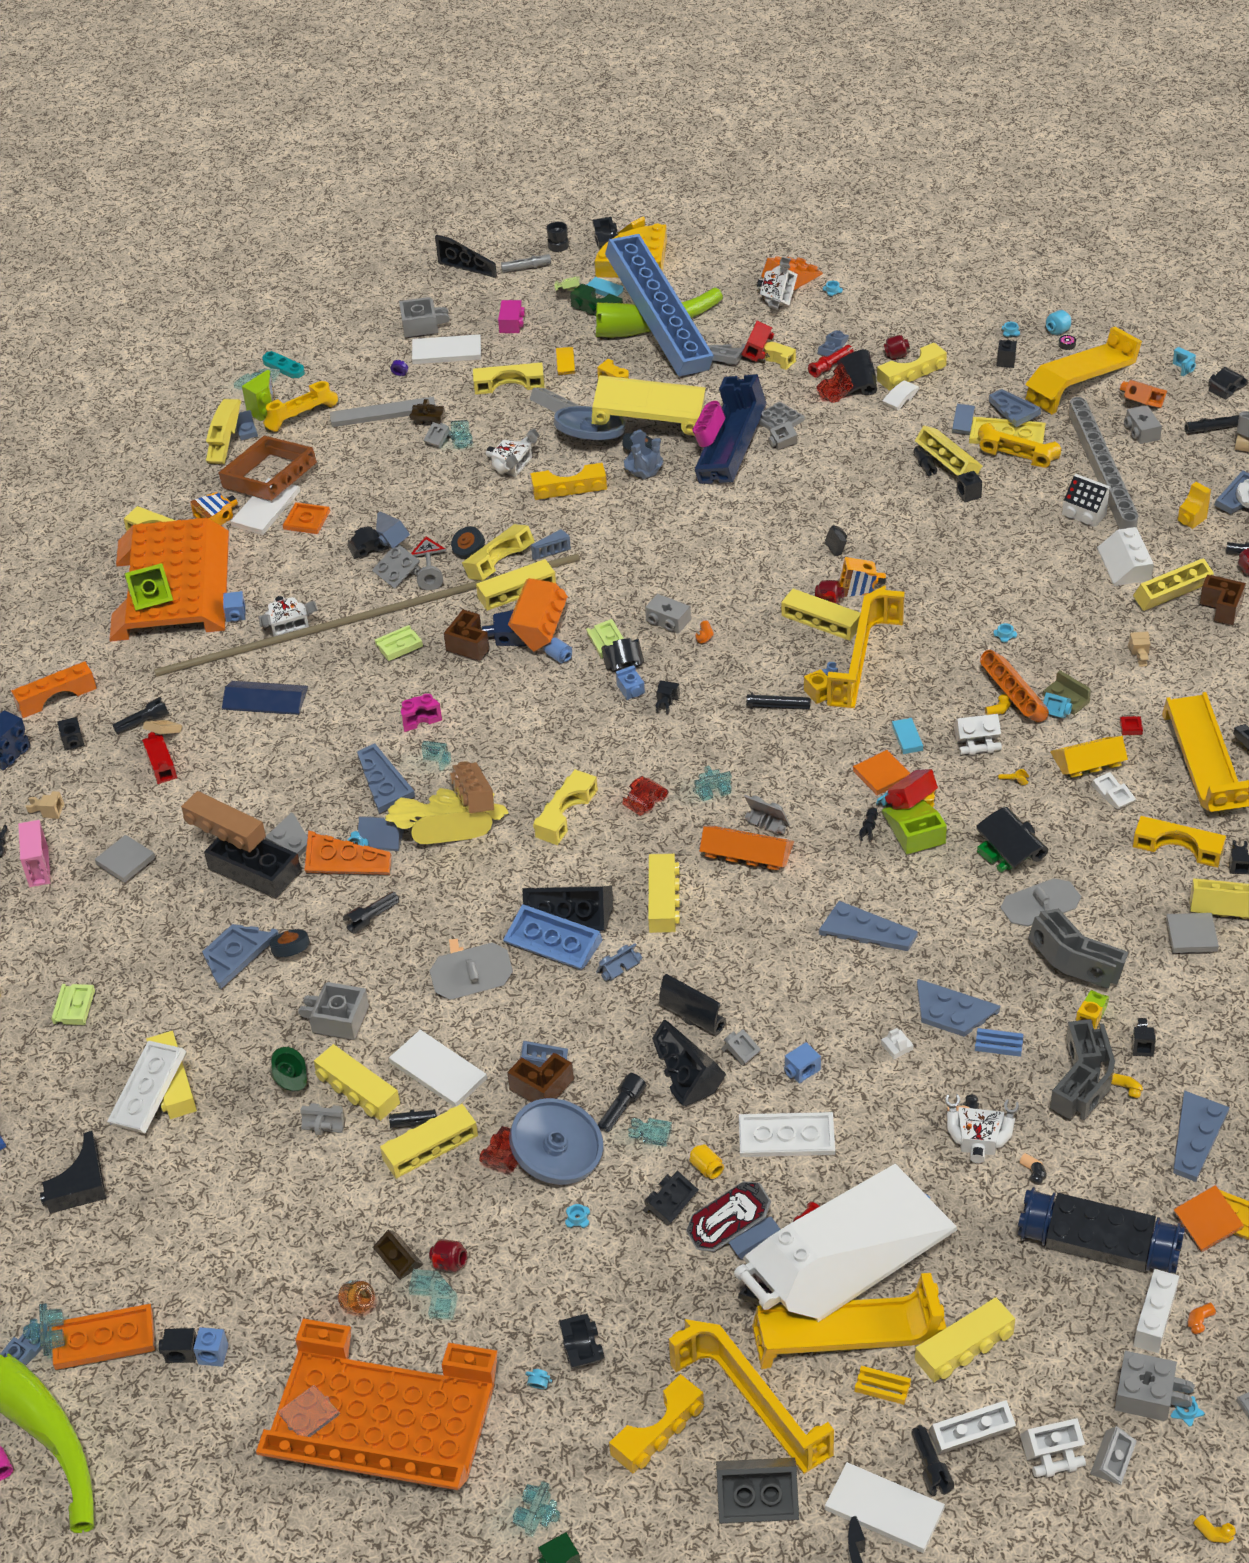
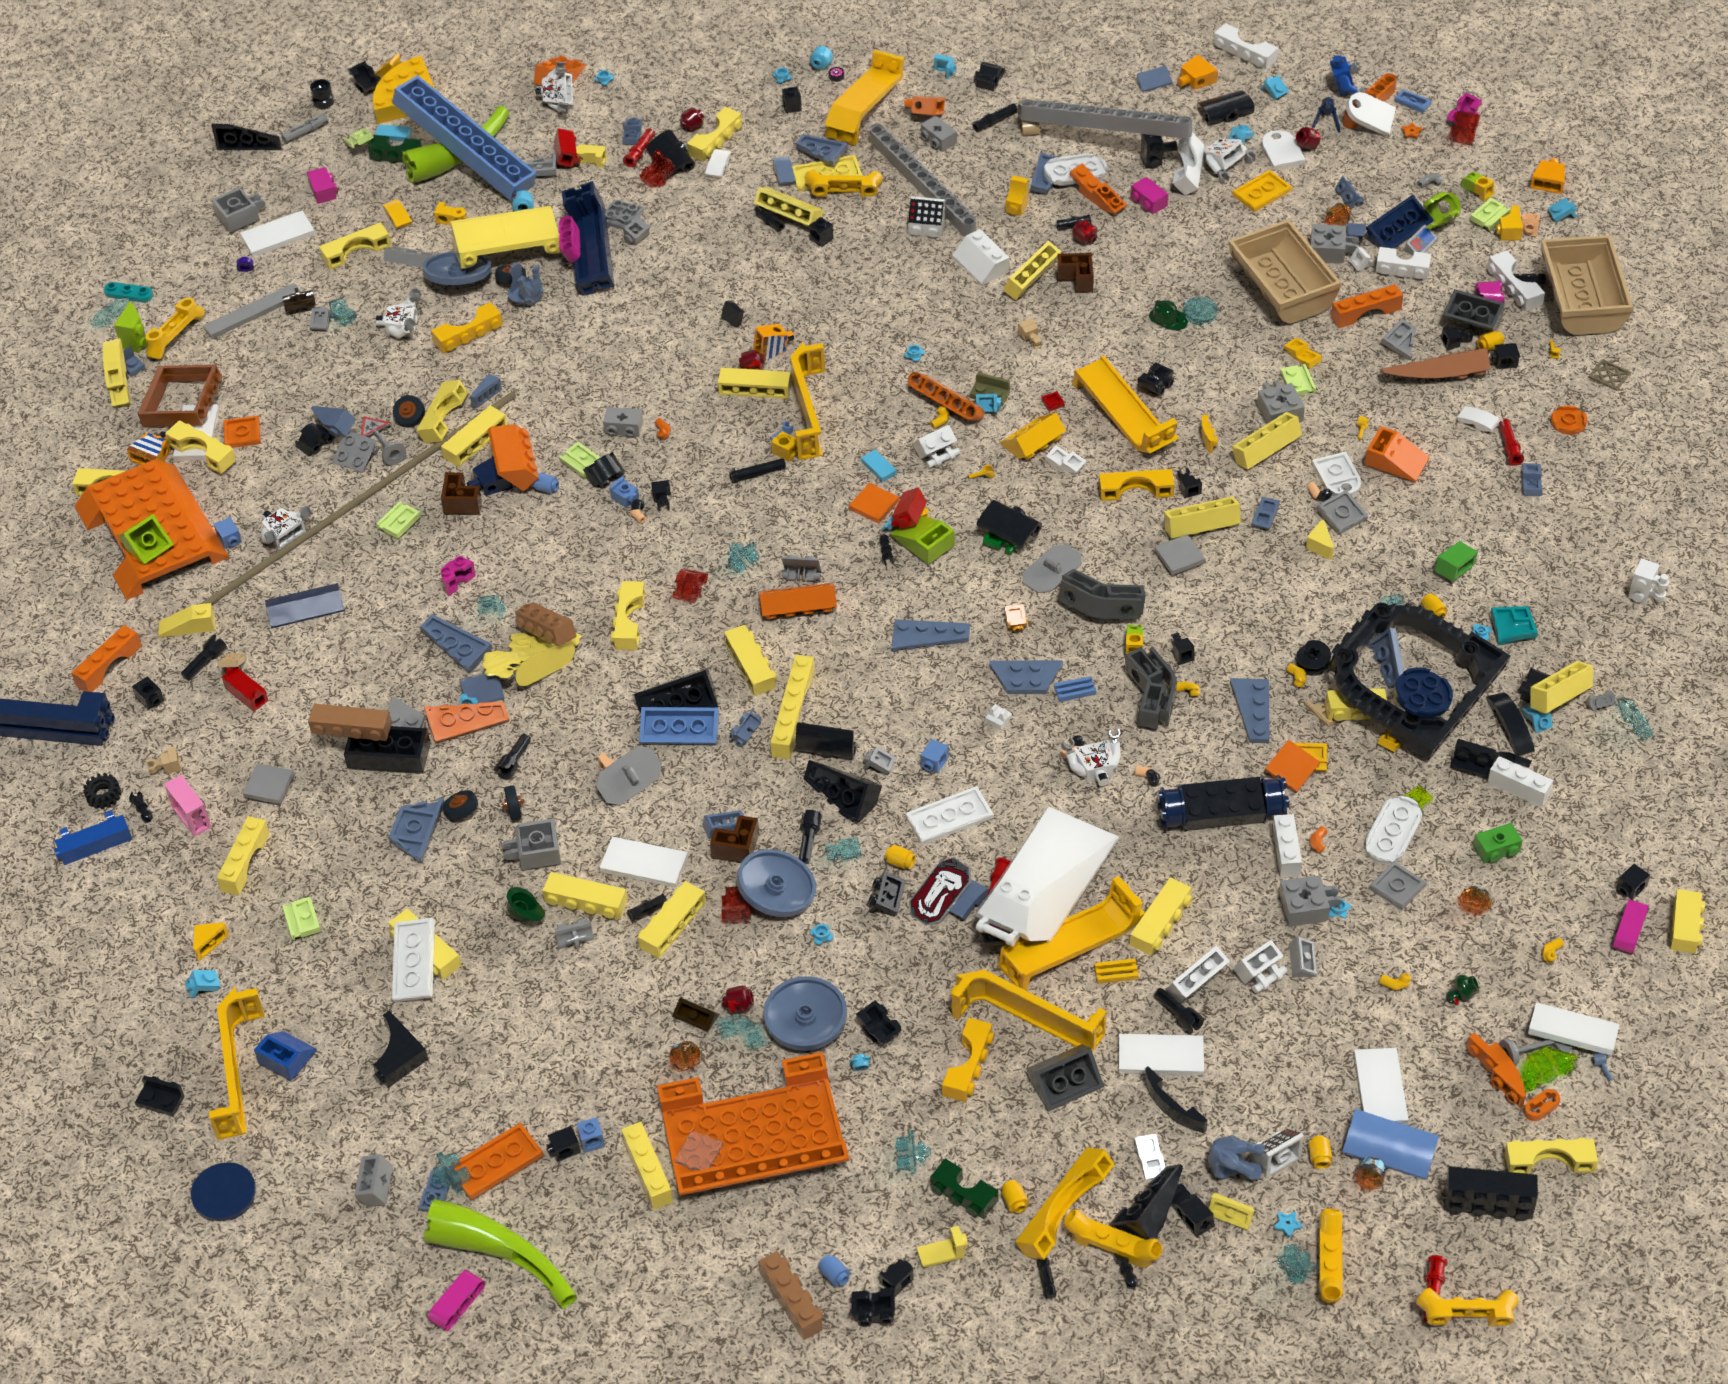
camera: 25 degrees left, 5 degrees up
(38, 934) = (234, 870): none -> light yellow arch
(151, 677) = (188, 621): none -> light yellow slope
(248, 1406) = (647, 1165): none -> light yellow brick
(266, 530) = (185, 437): none -> light yellow arch
(339, 958) = (512, 803): none -> black wheel
(507, 1299) = (805, 1013): none -> sand blue dish
(635, 700) = (636, 507): none -> arm
(689, 377) = (522, 200): none -> medium azure head
(699, 932) = (788, 717): none -> light yellow arch
(971, 941) = (1015, 617): none -> bracket

